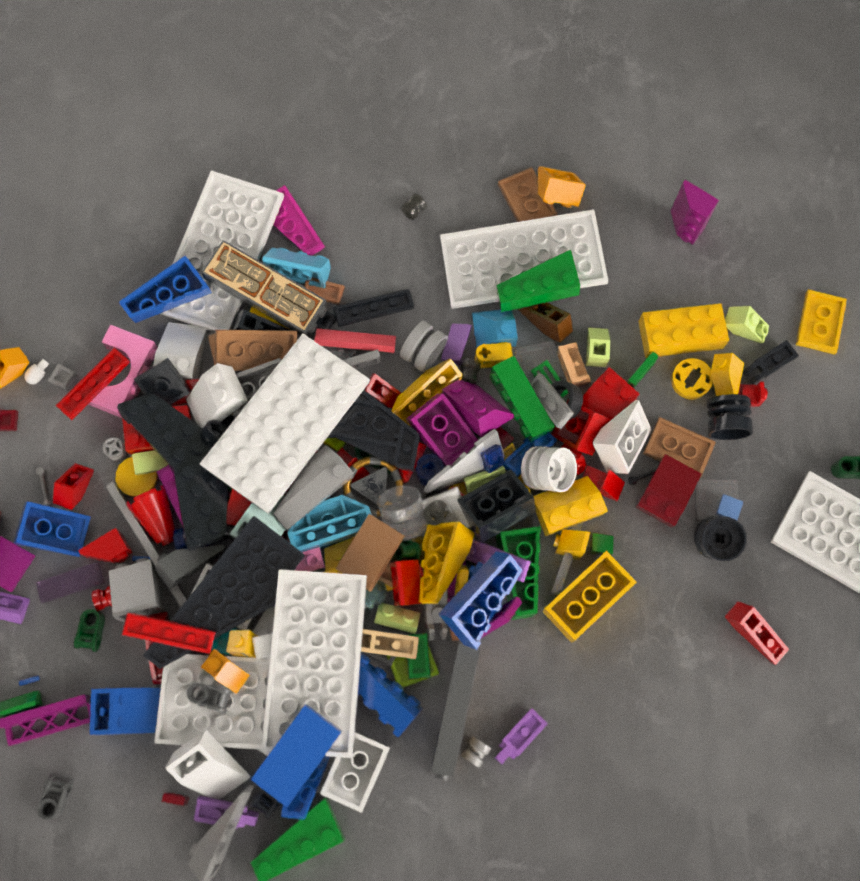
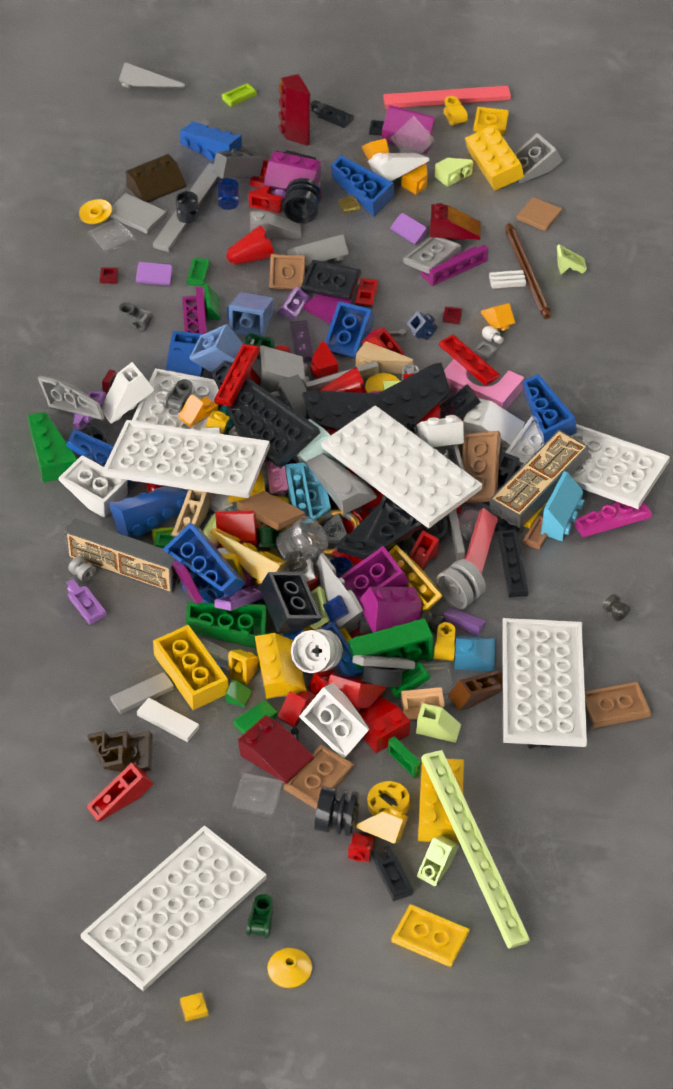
camera: 100 degrees right, 25 degrees down
(35, 446) = (422, 325): none -> dark blue brick
(35, 649) = (250, 314): none -> medium blue slope
(93, 491) = (388, 361): none -> tan slope
(123, 667) = (215, 348): none -> medium blue slope
(296, 755) = (116, 436): blue tile -> none
(540, 284) = (508, 679): green wedge -> none
(559, 187) = (622, 724): light orange slope -> none
(624, 643) = (139, 693): none -> light grey tile
(626, 521) = (252, 716): none -> green tile
(650, 608) = (168, 720): none -> white tile
(692, 211) = (568, 820): magenta slope -> none
(702, 644) = (121, 749): none -> dark brown slope
(729, 507) = (245, 796): medium blue tile -> none
(731, 539) = (216, 774): black wheel -> none
(739, 289) = (475, 849): none -> yellowish green plate

